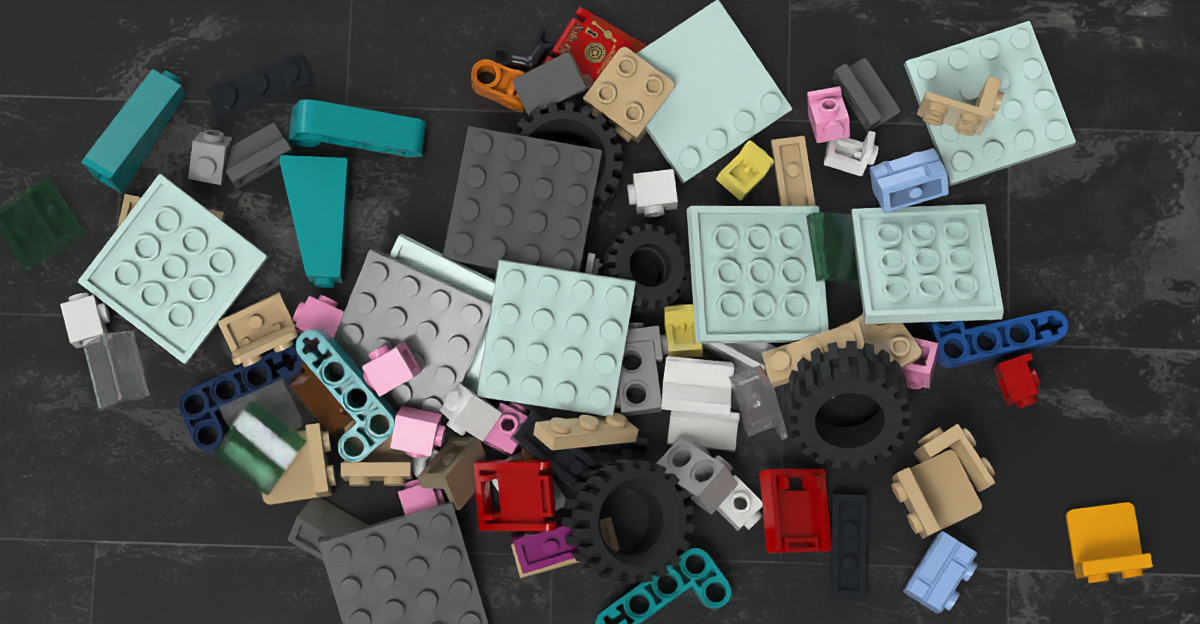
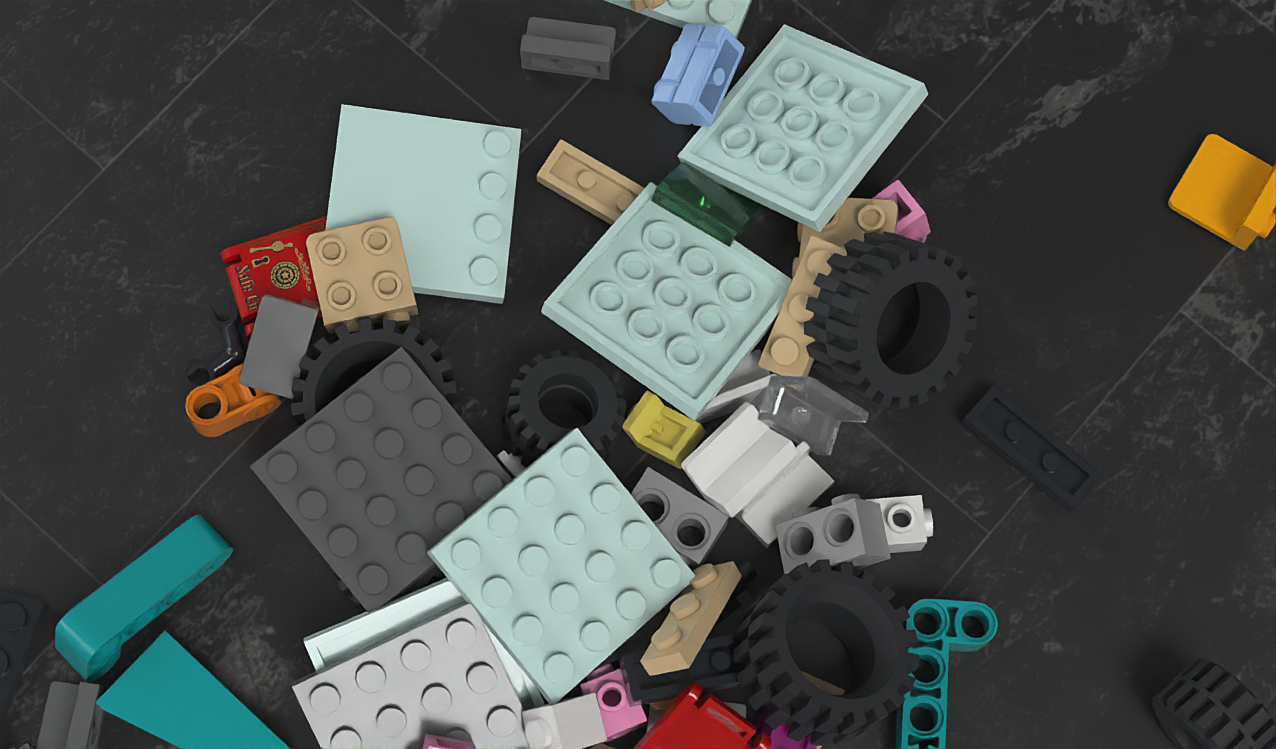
camera: 50 degrees left, 5 degrees down
(638, 333) = (637, 465): light grey bracket -> none
(653, 192) = (487, 338): white brick -> none
(745, 170) = (545, 226): light yellow bracket -> none
(795, 518) = (959, 475): red container -> none
(828, 114) = (560, 97): bright pink brick -> none
(851, 154) = (620, 110): white bracket -> none
(936, 493) = (1047, 315): tan bracket -> none
(941, 572) = (1135, 377): light blue brick -> none
(962, 443) = (1031, 248): tan bracket -> none
(998, 334) = (932, 120): blue beam -> none
(1017, 381) = (995, 140): red brick -> none

